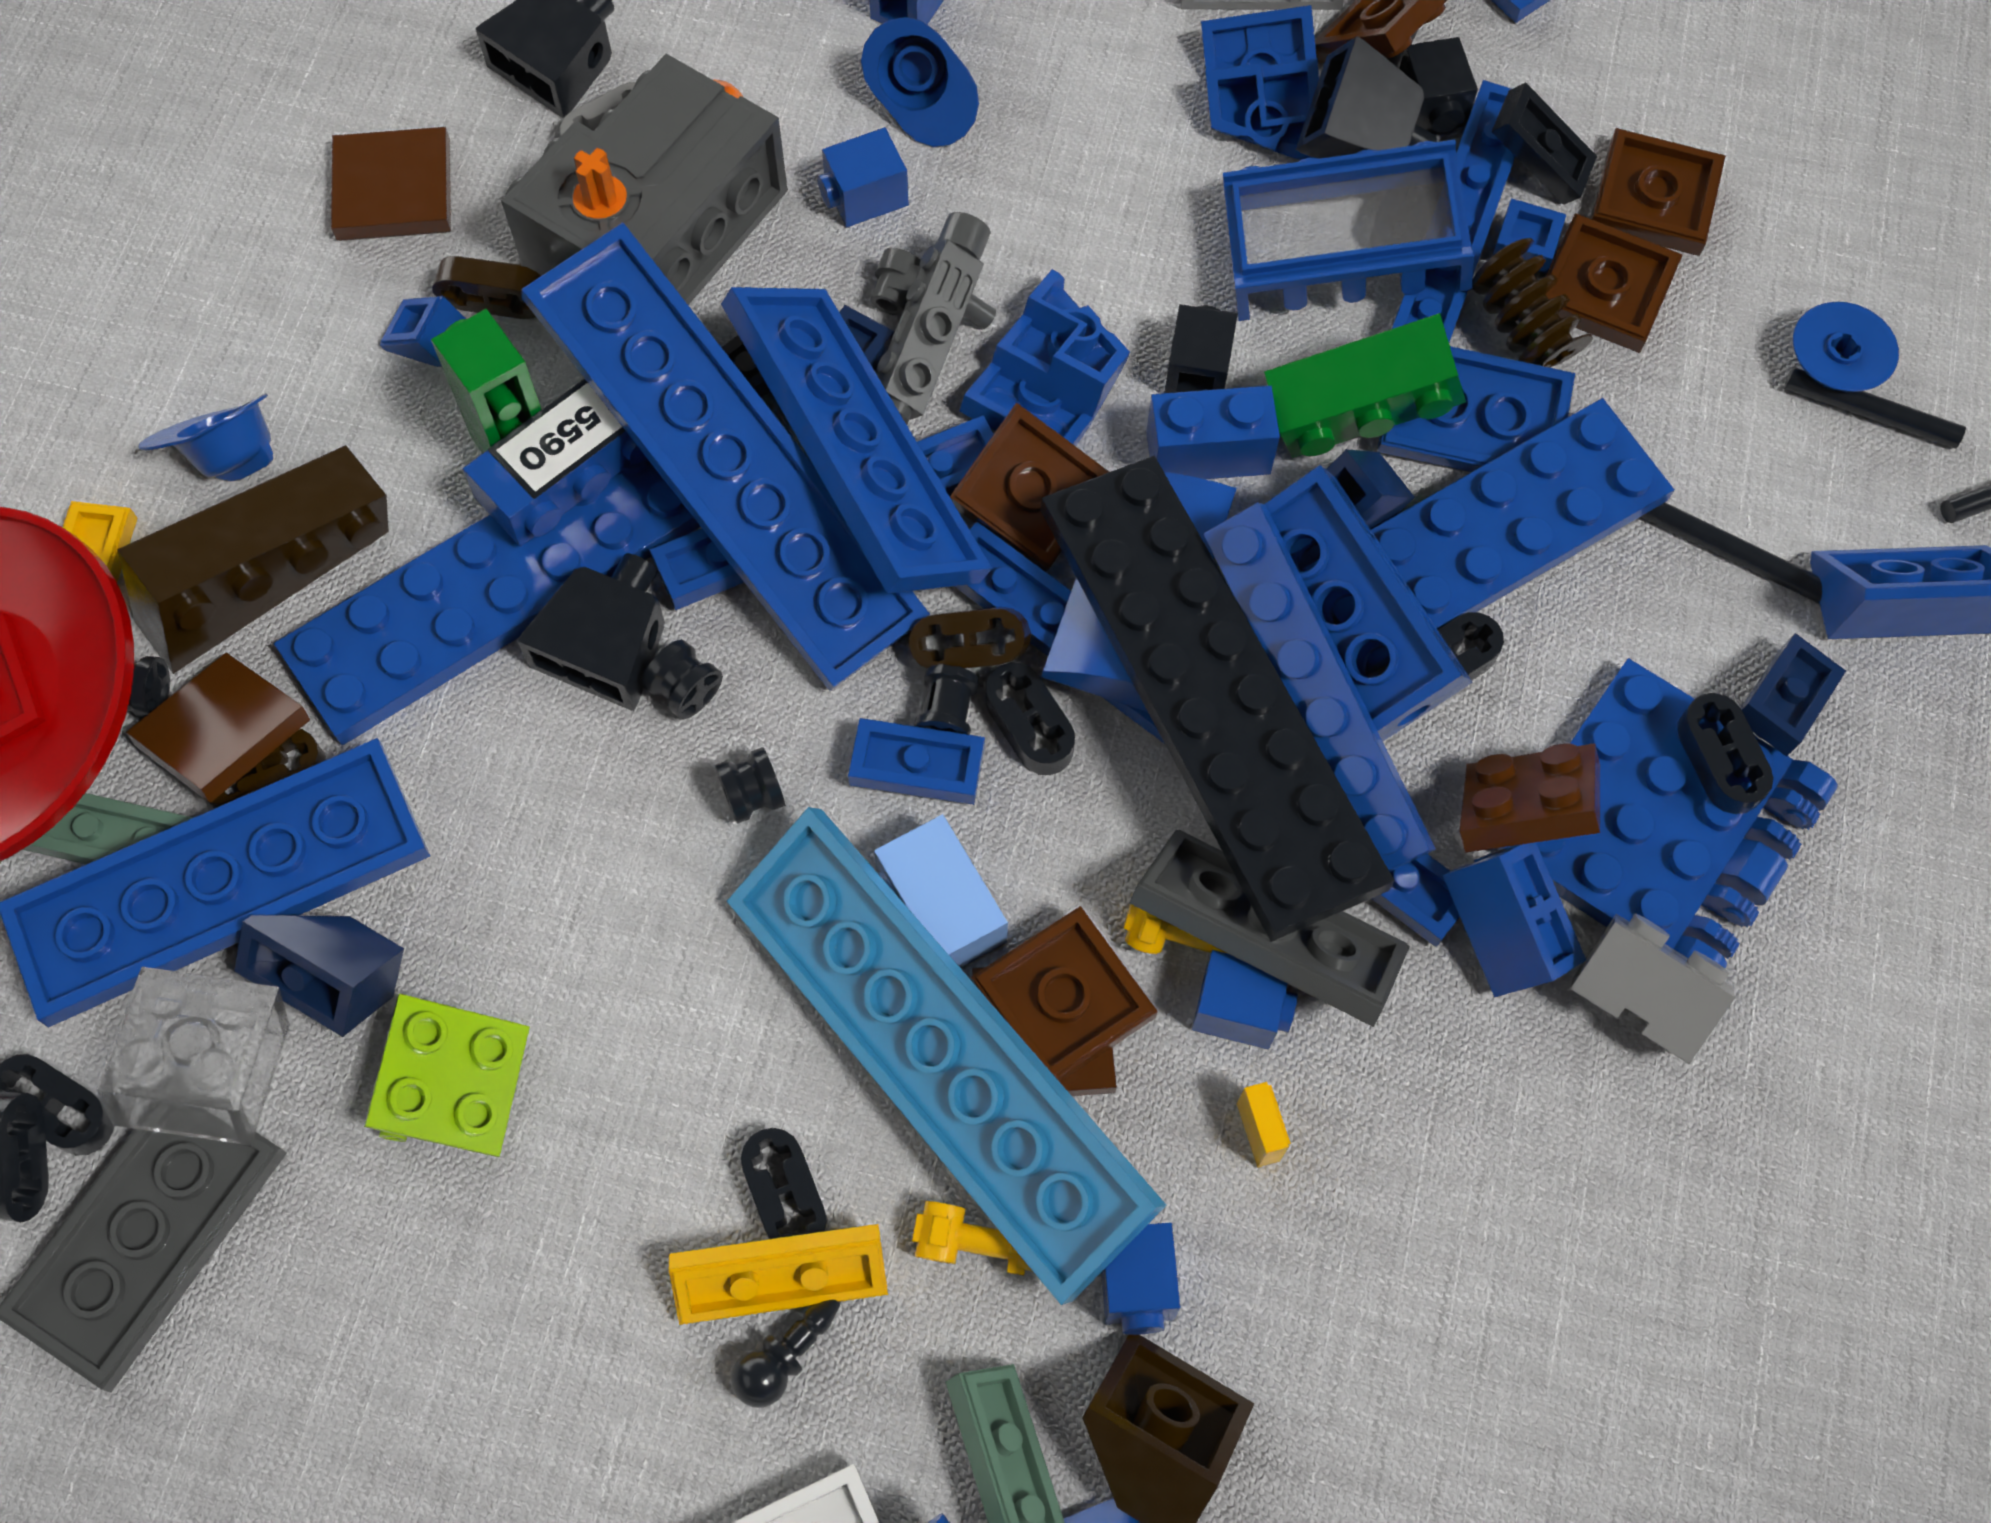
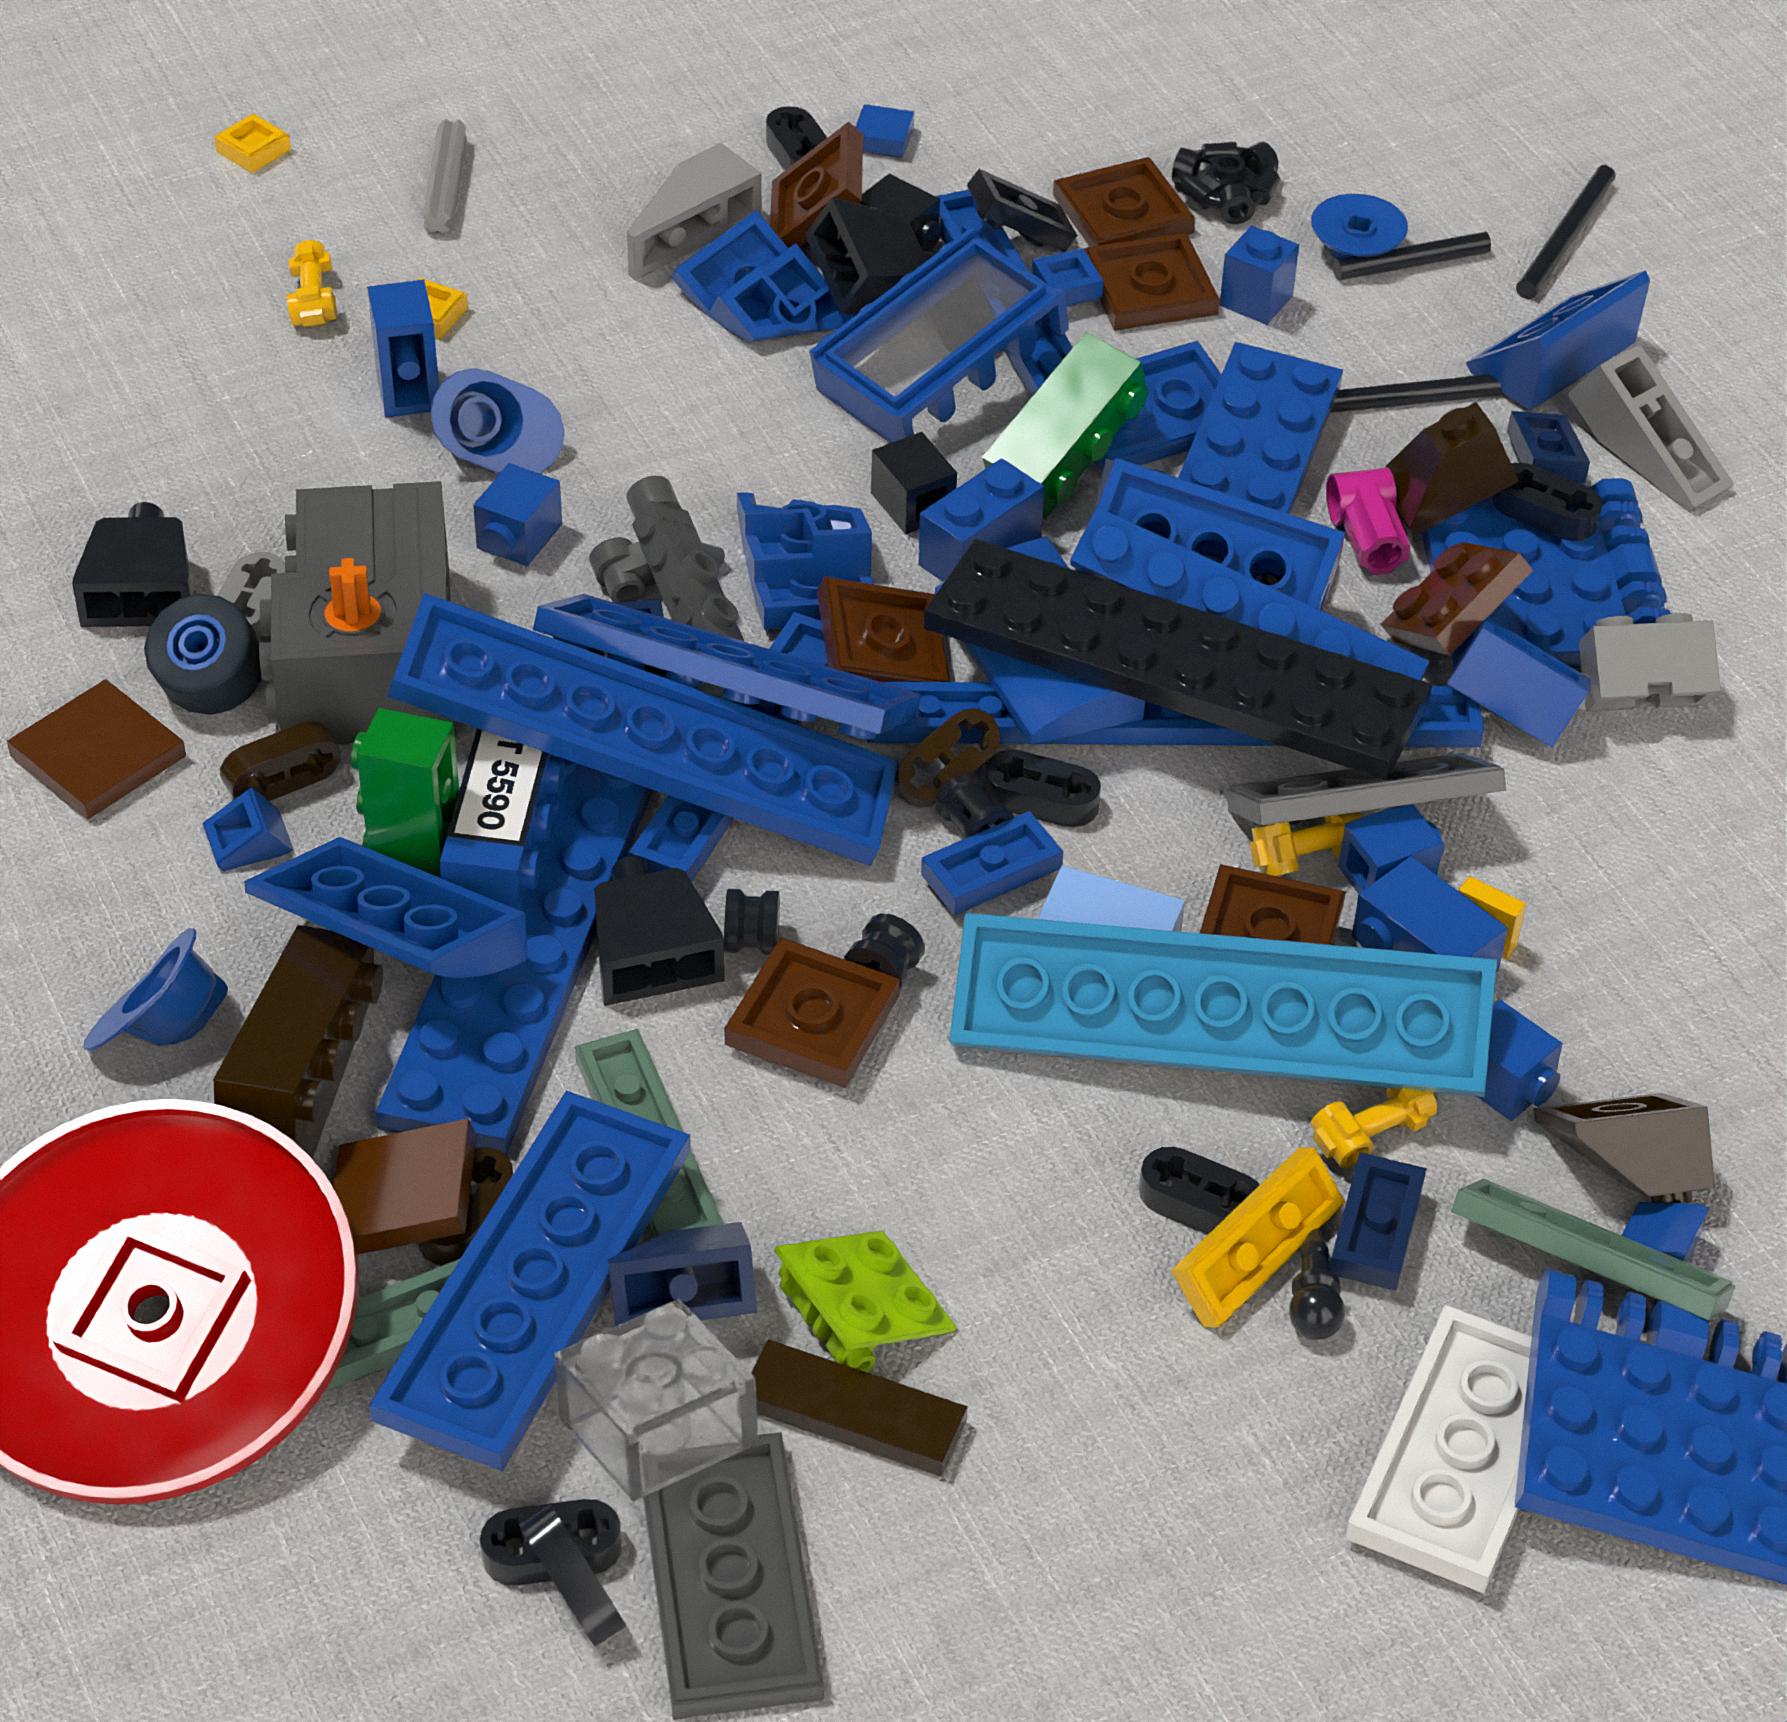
camera: 40 degrees left, 20 degrees down
(355, 1169) = (857, 1407): none -> dark brown tile
(402, 487) = (396, 910): none -> blue slope
(444, 808) = (624, 1077): none -> sand green tile
(506, 142) = (204, 654): none -> black wheel
(652, 795) = (812, 1012): none -> reddish brown plate
(888, 1336) = (1377, 1221): none -> dark blue plate
(1196, 1100) = (1424, 914): none -> blue brick
(1525, 308) = (1123, 316): dark brown piece -> none
(1561, 645) = (1367, 508): none -> dark pink piece
(1659, 663) = (1450, 468): none -> dark brown slope
(1699, 340) = (1259, 274): none -> blue brick
(1772, 230) = (1235, 176): none -> black piece
(1910, 744) = (1649, 429): none -> light grey slope

